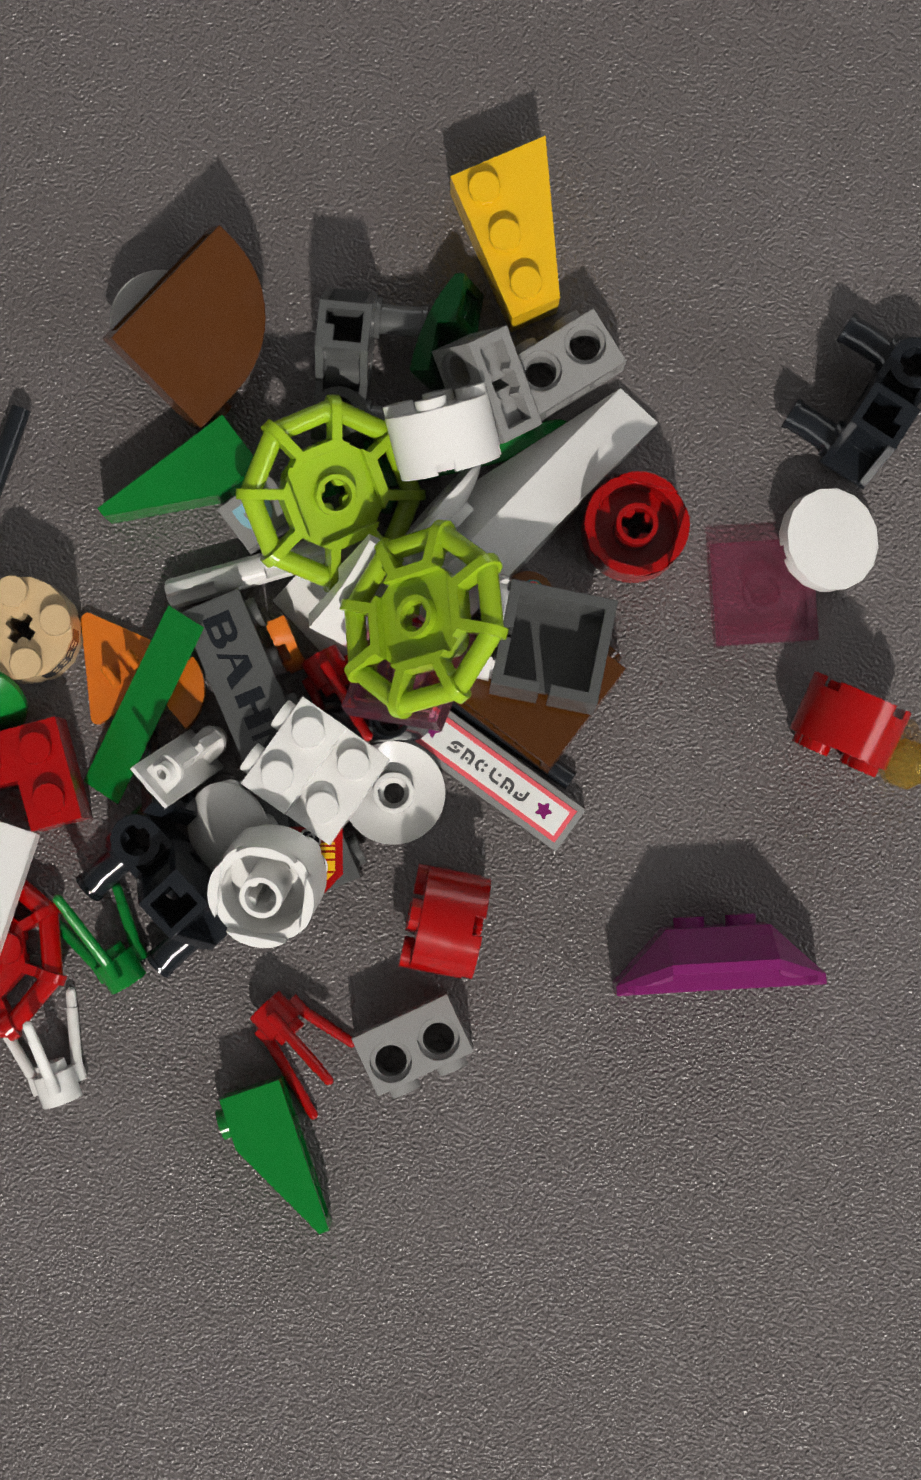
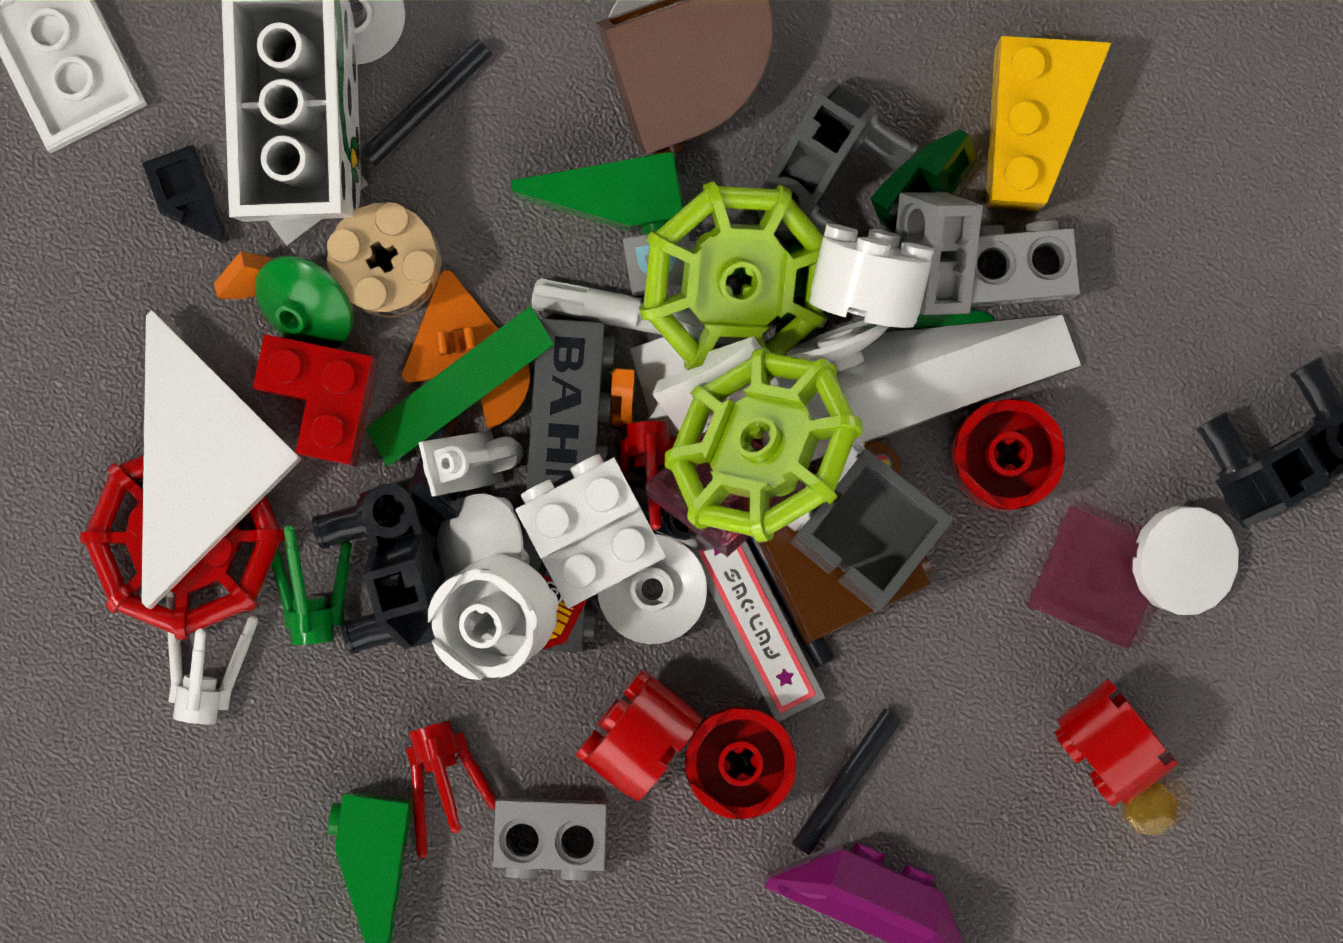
camera: 30 degrees right, 0 degrees up
(559, 925) = (743, 794): none -> red brick
(639, 871) = (846, 781): none -> black bar

